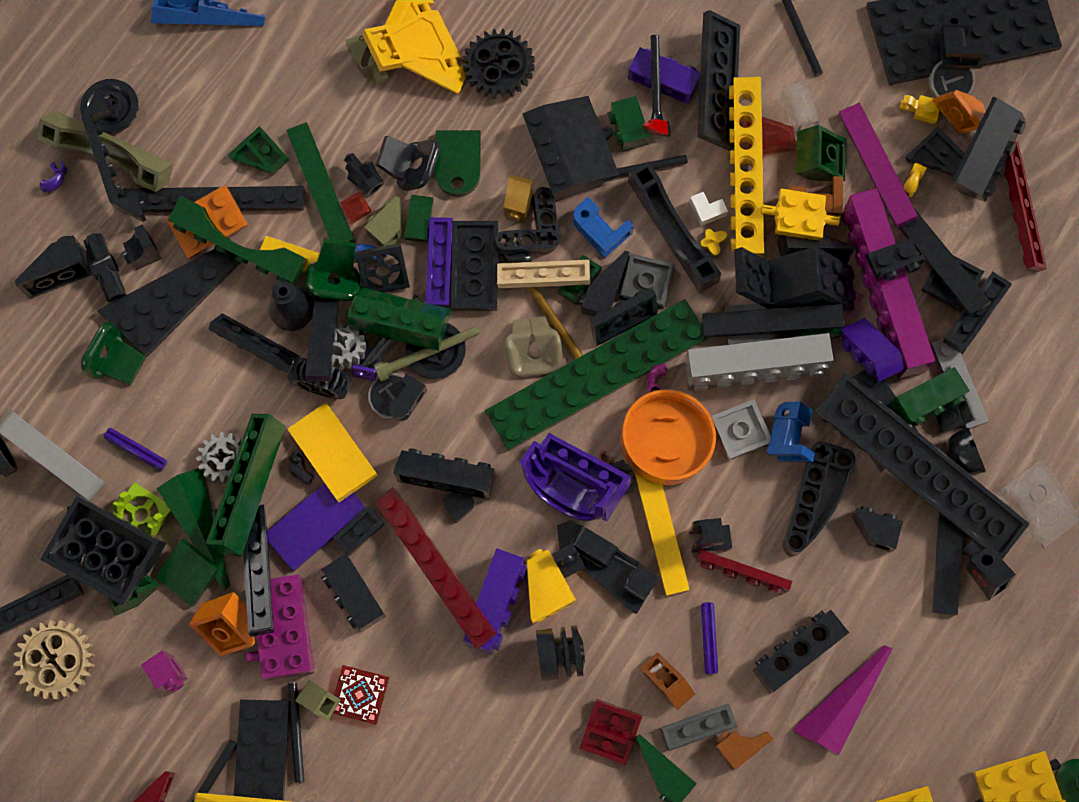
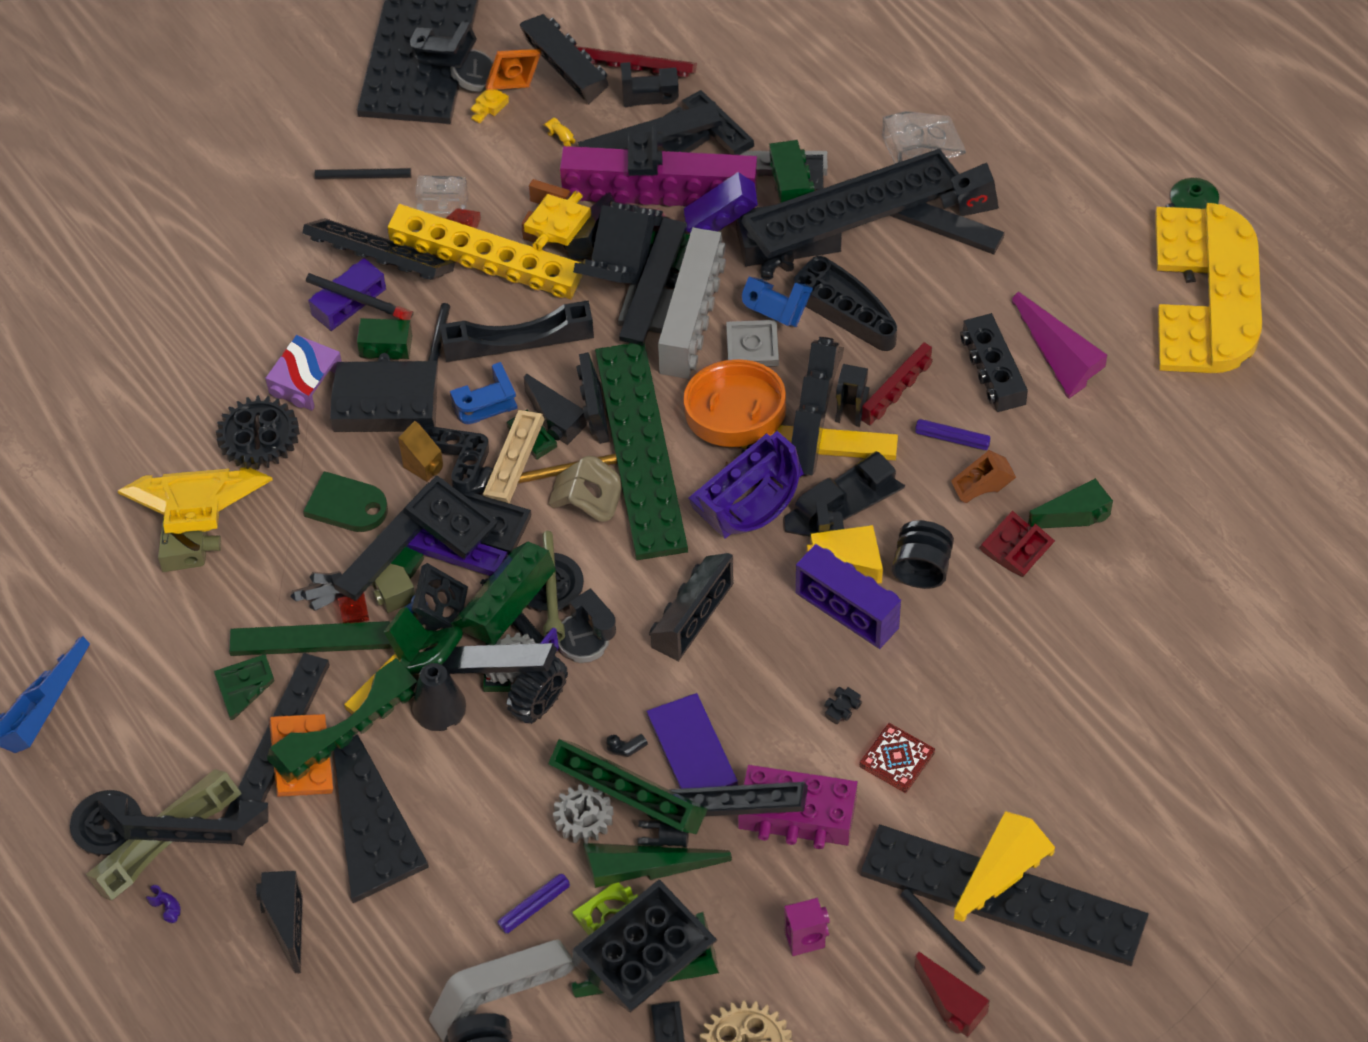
camera: 70 degrees left, 20 degrees down
(104, 267) = (313, 872): black piece -> none
(121, 360) = (422, 891): dark green piece -> none
(140, 249) = (301, 825): black arch -> none
(188, 572) = (700, 880): dark green tile -> none
(223, 624) = (775, 853): orange slope -> none
(253, 342) = (471, 743): black plate -> none
(296, 733) = (918, 830): black bar -> none
(318, 700) = (890, 790): olive brick -> none
(332, 452) = (622, 706): yellow tile -> none
(352, 593) = (786, 728): black brick -> none
(358, 531) = (719, 707): black plate -> none
(397, 156) = (315, 544): black piece -> none
(400, 634) = (842, 706): none -> black piece
(419, 210) = (377, 556): none -> black tile
(436, 568) = (790, 632): dark red plate -> none
(456, 246) = (450, 517): none -> black plate
(458, 506) = (729, 610): black tile -> none
(570, 71) = (301, 371): none -> panel
(647, 273) = (559, 373): dark grey tile -> none
(654, 374) = (664, 400): magenta arm -> none
(690, 503) = (815, 395): none -> black arch
(698, 727) = (1038, 470): dark grey tile -> none
(707, 212) = (509, 306): white piece -> none
(712, 241) = (542, 307): yellow piece -> none
(738, 749) = (1072, 440): dark orange arch -> none
(820, 154) = (497, 195): dark green slope -> none
(878, 165) = (521, 153): magenta tile -> none
(878, 529) = (897, 266): black slope -> none
(937, 153) = (542, 104): black wing -> none
(964, 452) = (847, 168): black cylinder -> none
(994, 237) = (649, 89): none -> black piece

